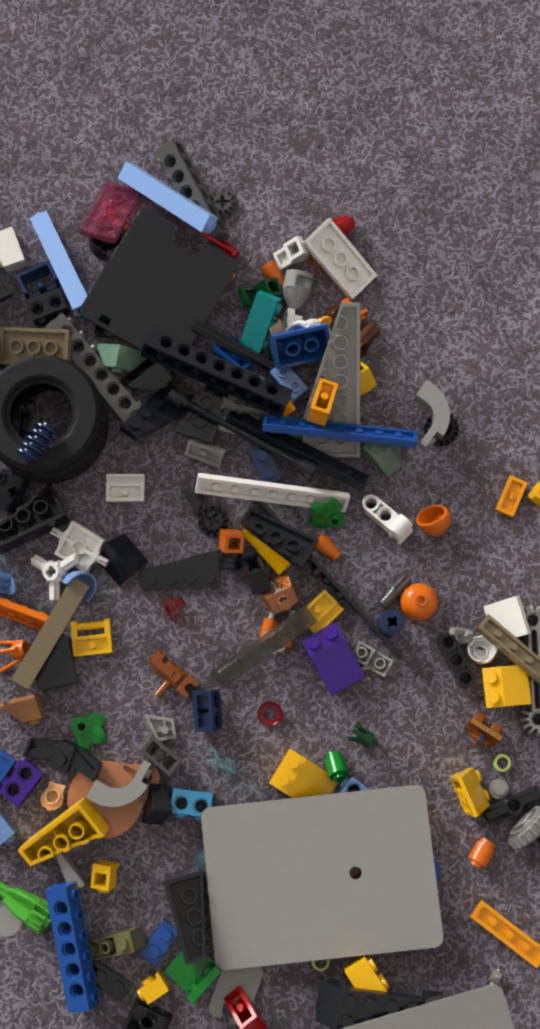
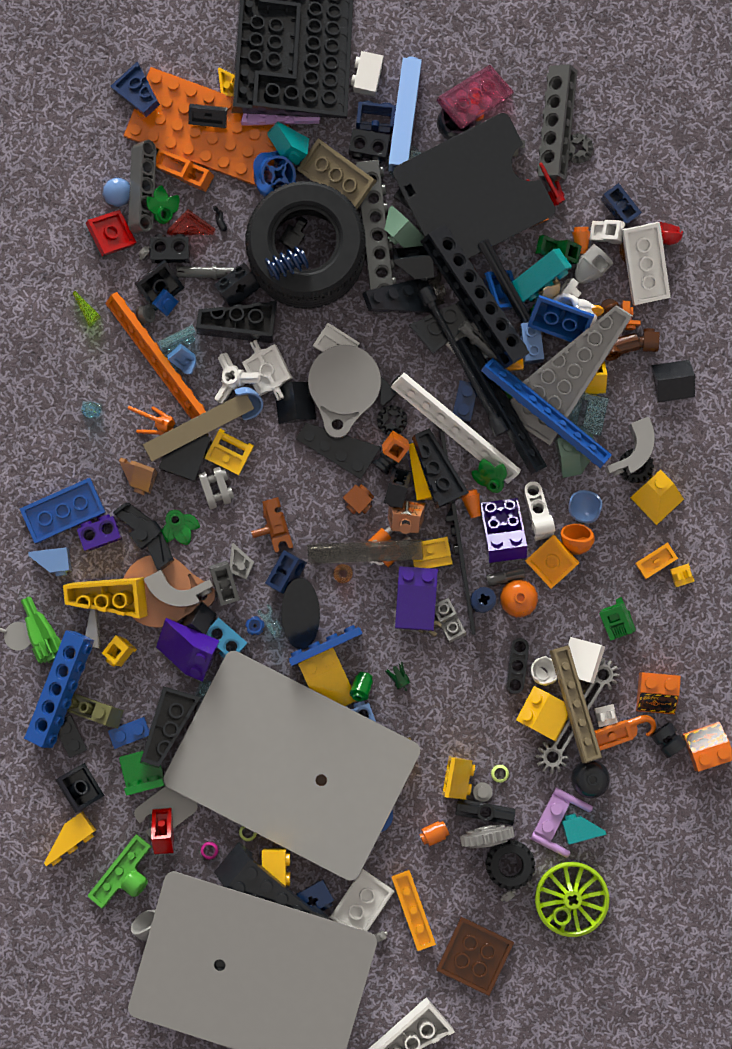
camera: 30 degrees right, 5 degrees up
(52, 796) = (116, 561): light nougat animal -> none
(97, 664) = (220, 477): none -> light grey brick
(153, 987) = (102, 764): yellow brick -> none
(154, 518) = (343, 386): none -> light grey piece
(164, 833) = (187, 648): none -> dark purple slope
(168, 198) = (532, 115): light blue brick -> none
(172, 606) = (311, 470): clear red tile -> none
(204, 773) = (254, 620): none -> blue plate
(205, 452) = (422, 357): light grey plate -> none
(229, 606) = (358, 500): none -> dark orange brick
(242, 737) = (300, 613): none -> black shield
(256, 684) = (338, 578): none -> clear orange plate
(269, 722) = (327, 609): dark red piece -> none
(277, 758) = (332, 642): none -> blue tile
(287, 225) = (621, 205): none -> dark blue brick
(297, 994) = (209, 857): none -> dark pink piece
(322, 402) = (547, 379): light orange slope -> none
(368, 553) = (503, 530): none -> dark purple slope
(378, 407) = (594, 413): none -> clear light blue plate
(384, 319) = (649, 340): none -> reddish brown plate
(417, 972) = (320, 891): none -> dark blue brick
(423, 489) = (585, 506): none -> medium blue helmet
(425, 340) = (674, 380): none -> black slope
(426, 552) = (552, 561): none -> light orange plate
(460, 959) = (362, 902): none -> white tile
(462, 635) = (536, 649): light grey plate -> none
(476, 443) = (657, 497): none -> yellow slope
(481, 733) = (499, 739): dark orange hips -> none
(513, 566) = (617, 620): none -> green piece

